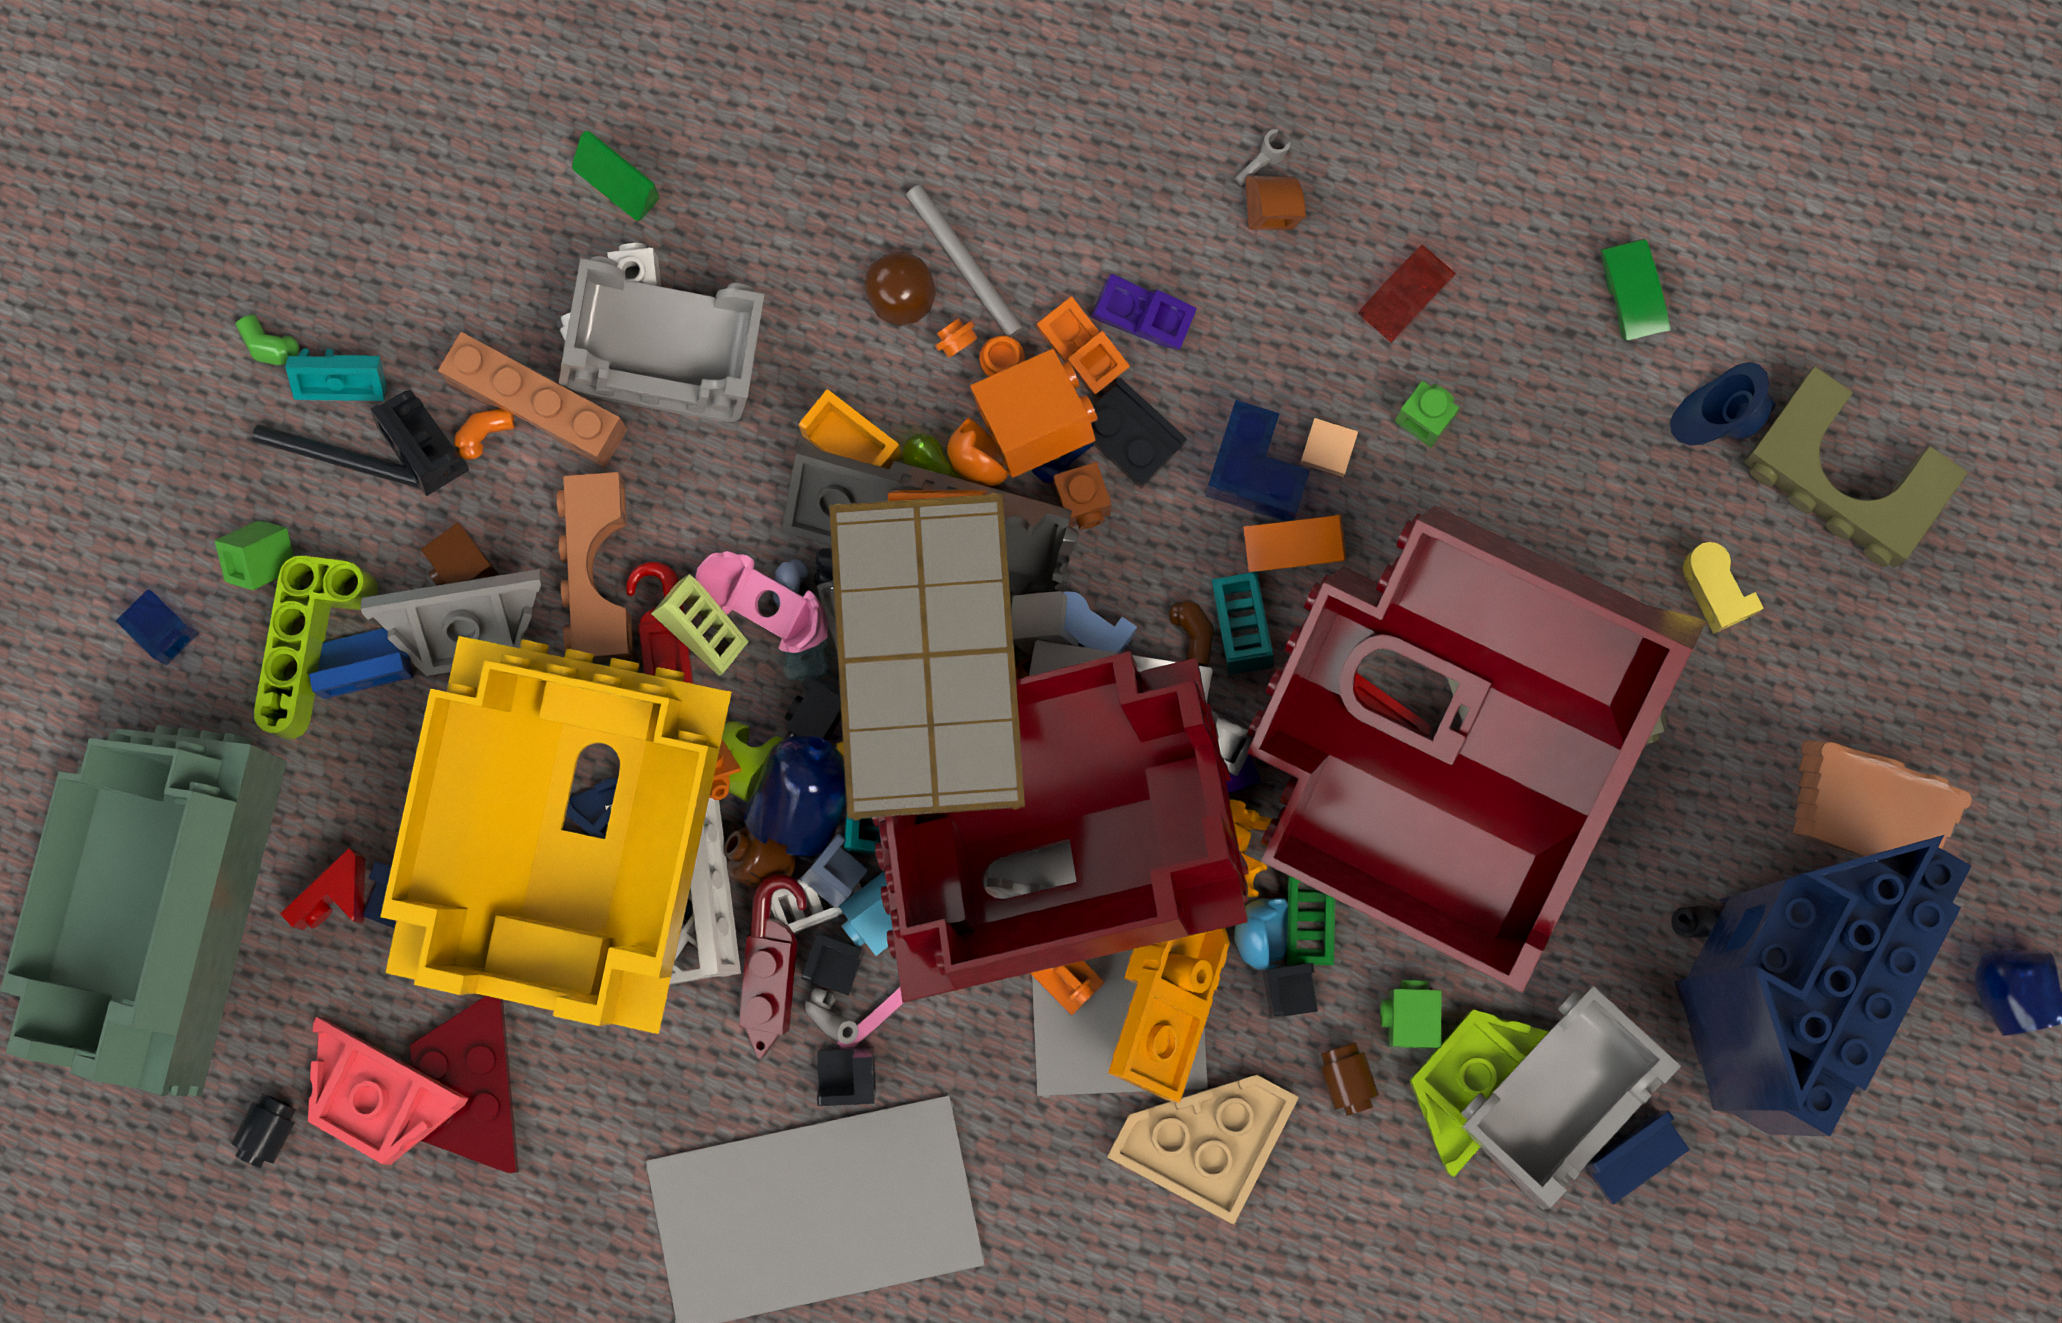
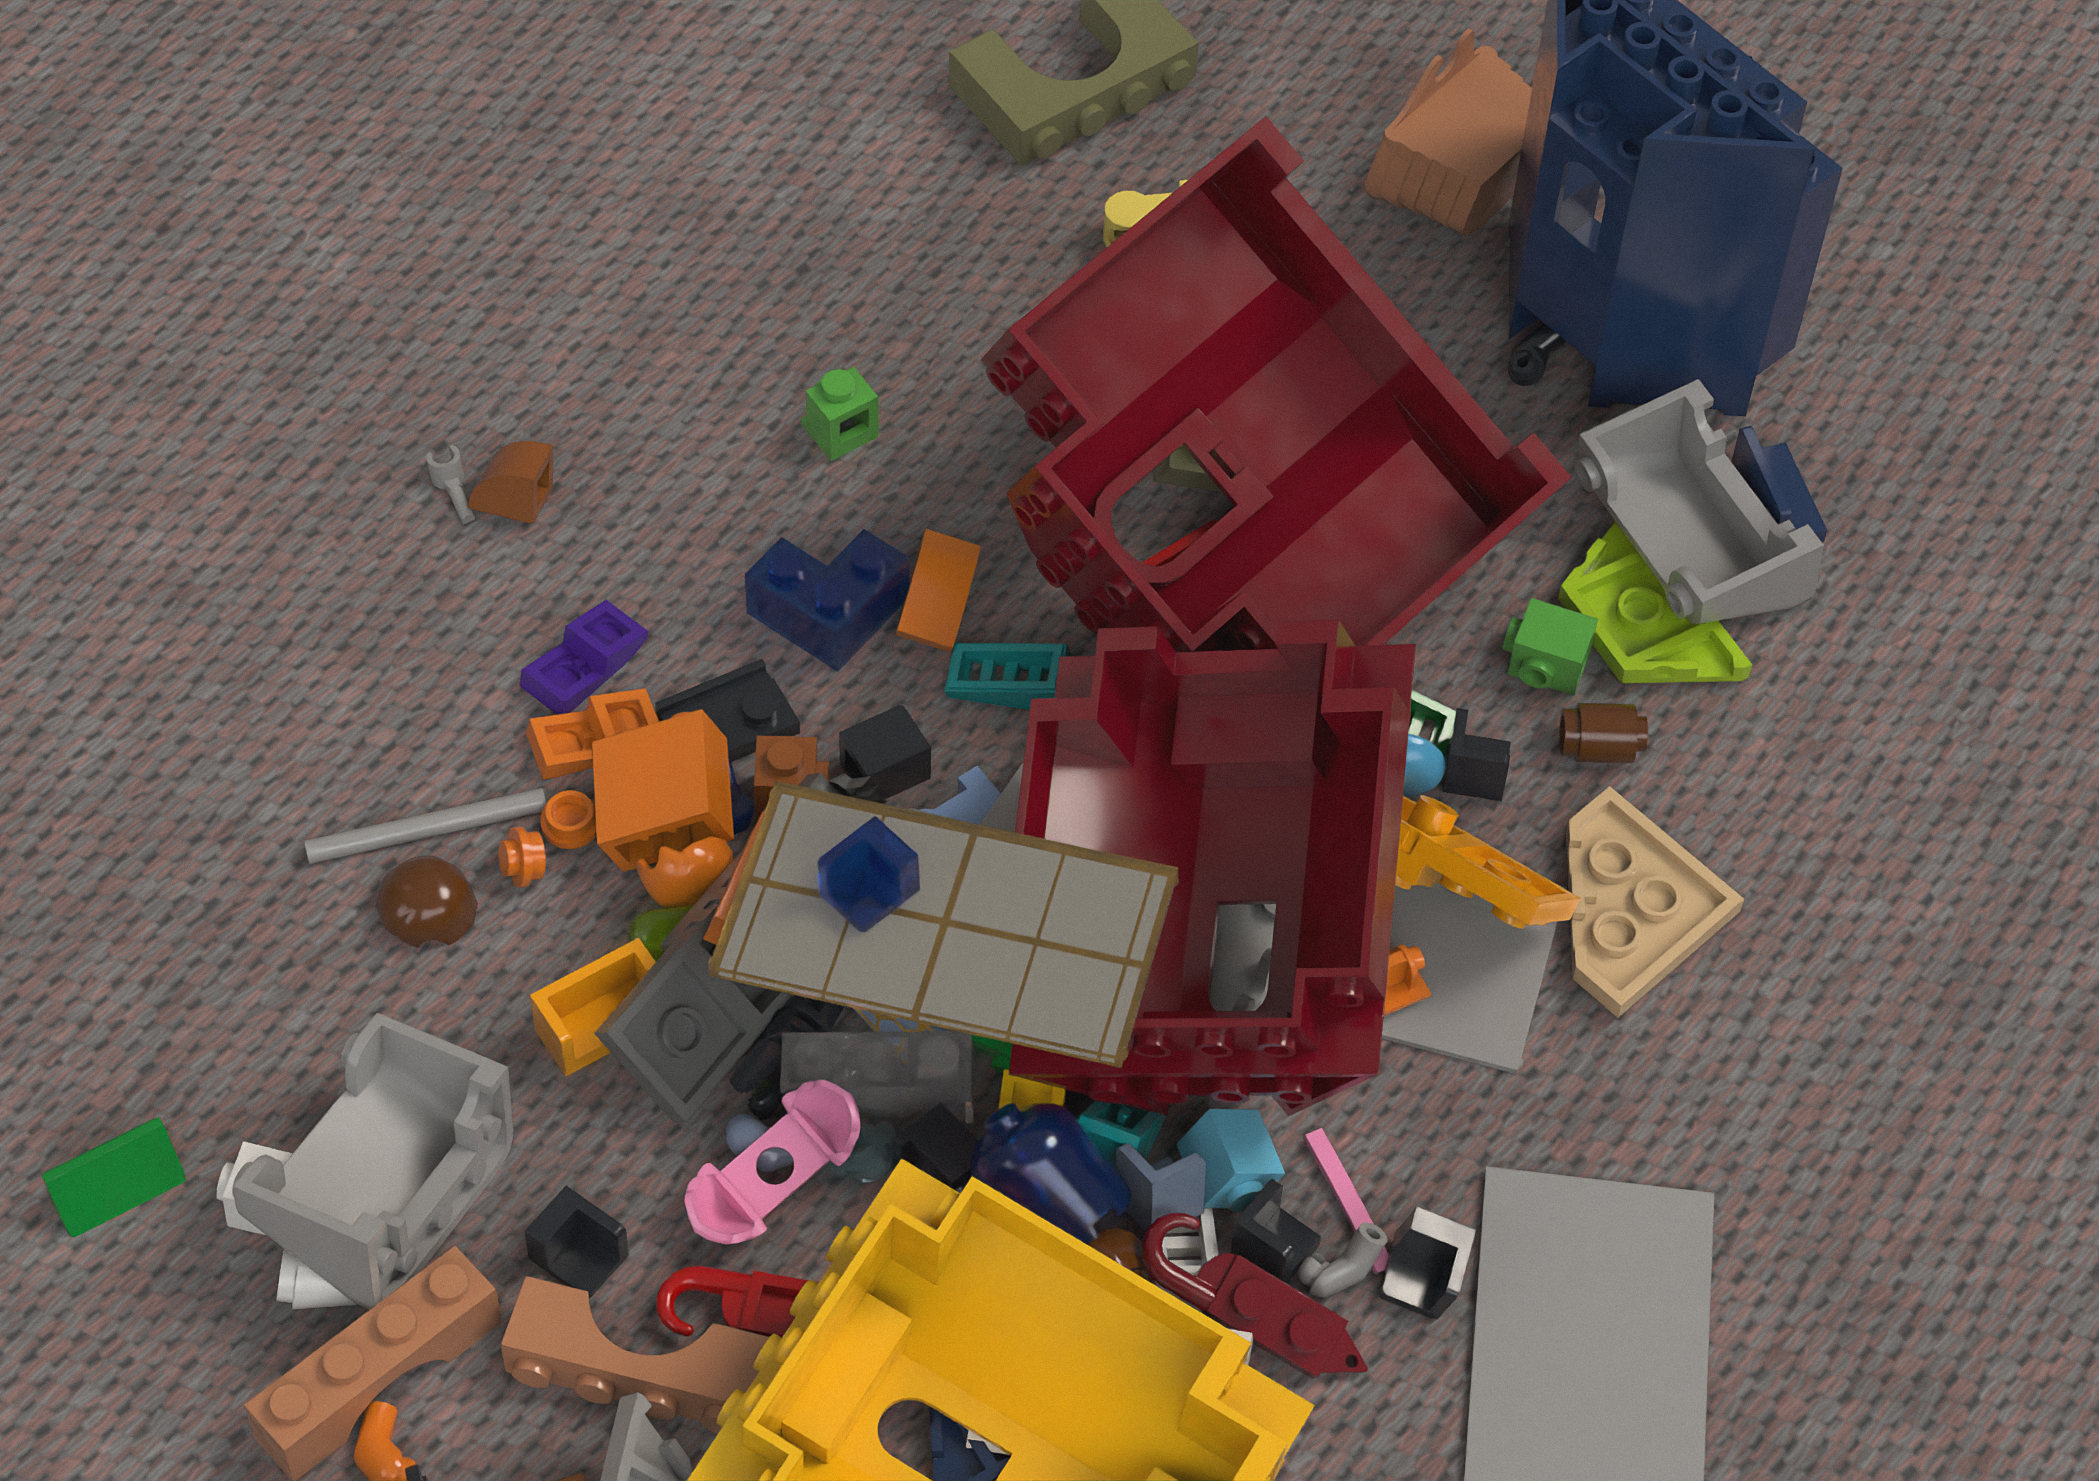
camera: 75 degrees left, 25 degrees down
(668, 494) = (576, 1242): none -> black panel
(680, 624) = (763, 1250): yellowish green slope -> none
(930, 589) = (868, 874): none -> clear blue panel
(1130, 556) = (887, 750): none -> black panel
(1197, 626) = (1001, 720): reddish brown arm -> none
(1329, 447) = (833, 525): light nougat tile -> none
(1406, 293) = (688, 395): clear red slope -> none
(1636, 289) = (774, 185): green slope -> none
(1728, 406) = (955, 146): dark blue piece -> none

